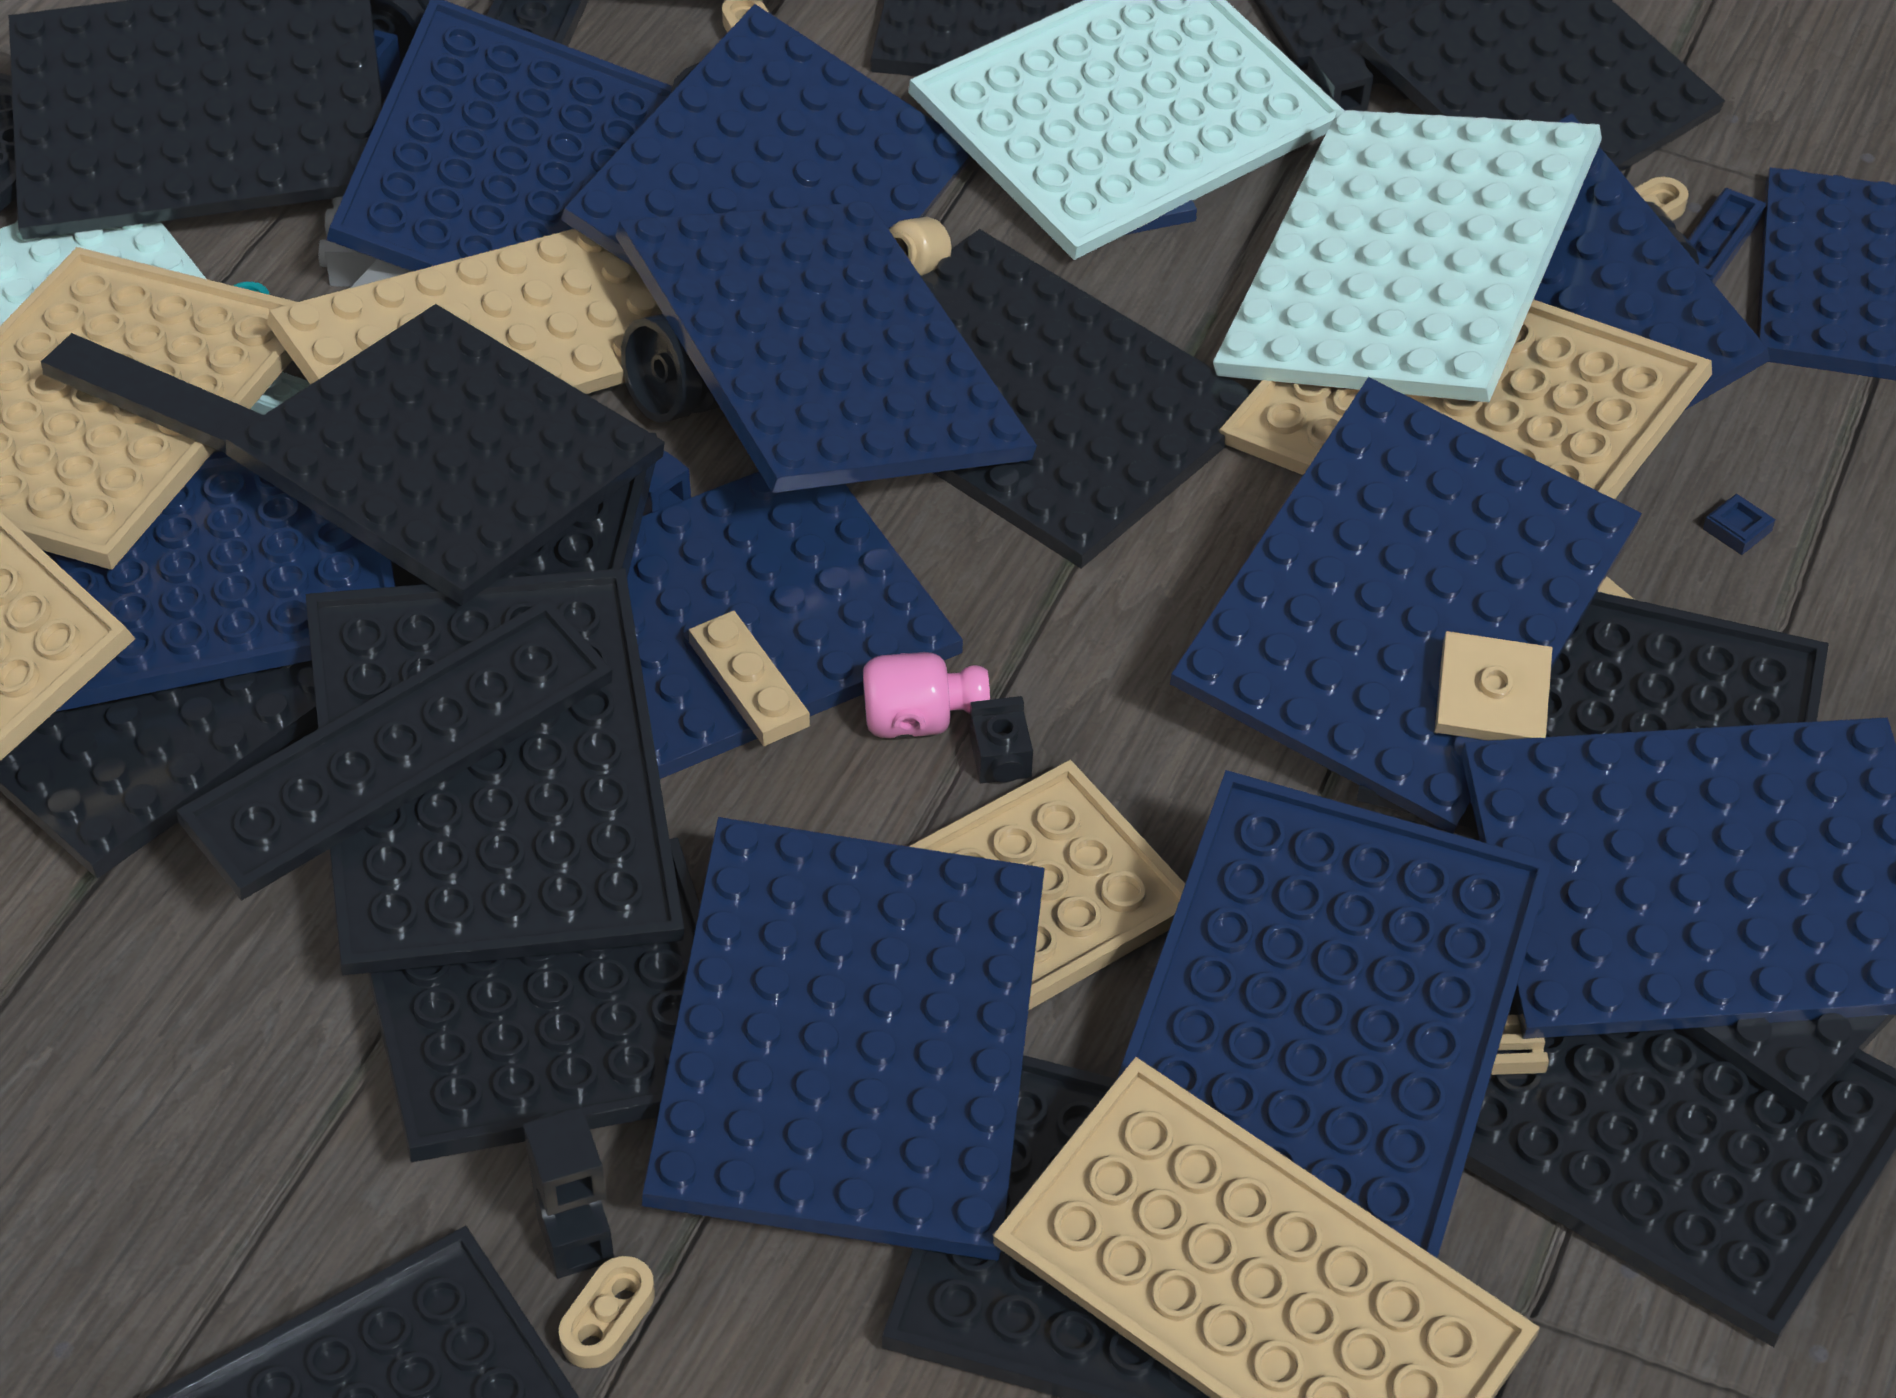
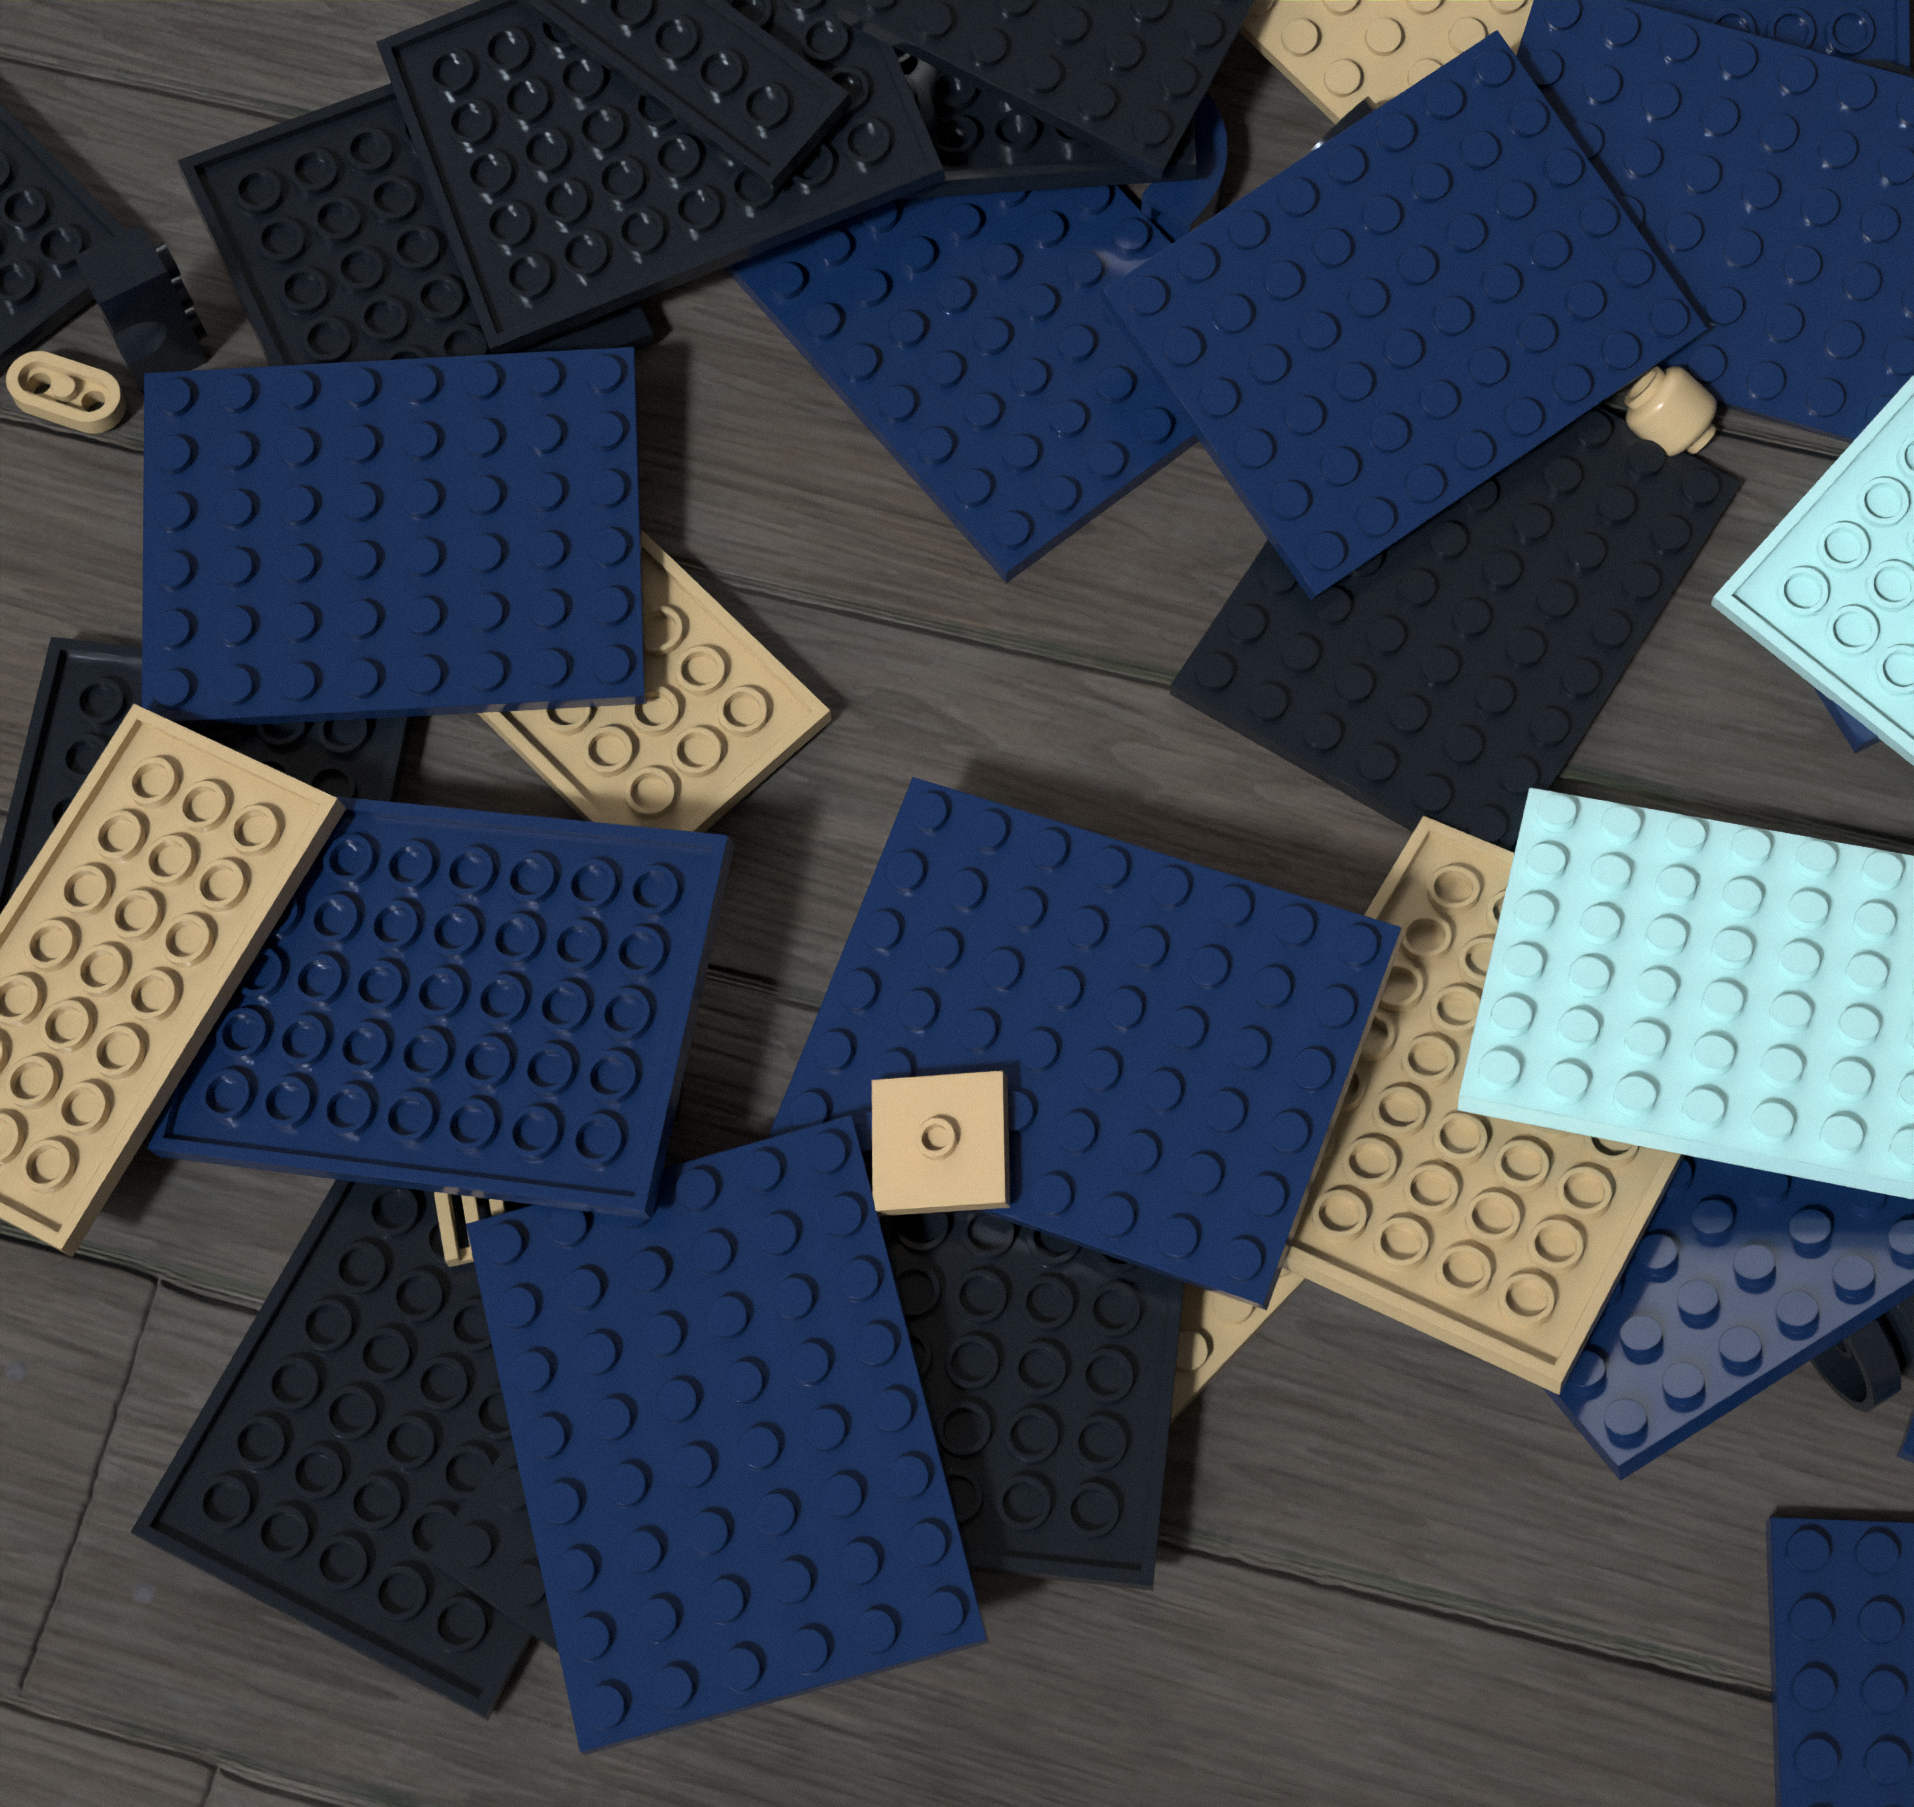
camera: 85 degrees right, 20 degrees up
(749, 678) = (882, 353): tan plate -> none
(915, 693) = (893, 532): bright pink piece -> none
(1000, 740) = (862, 651): black brick -> none
(1739, 524) = (1415, 1495): dark blue tile -> none

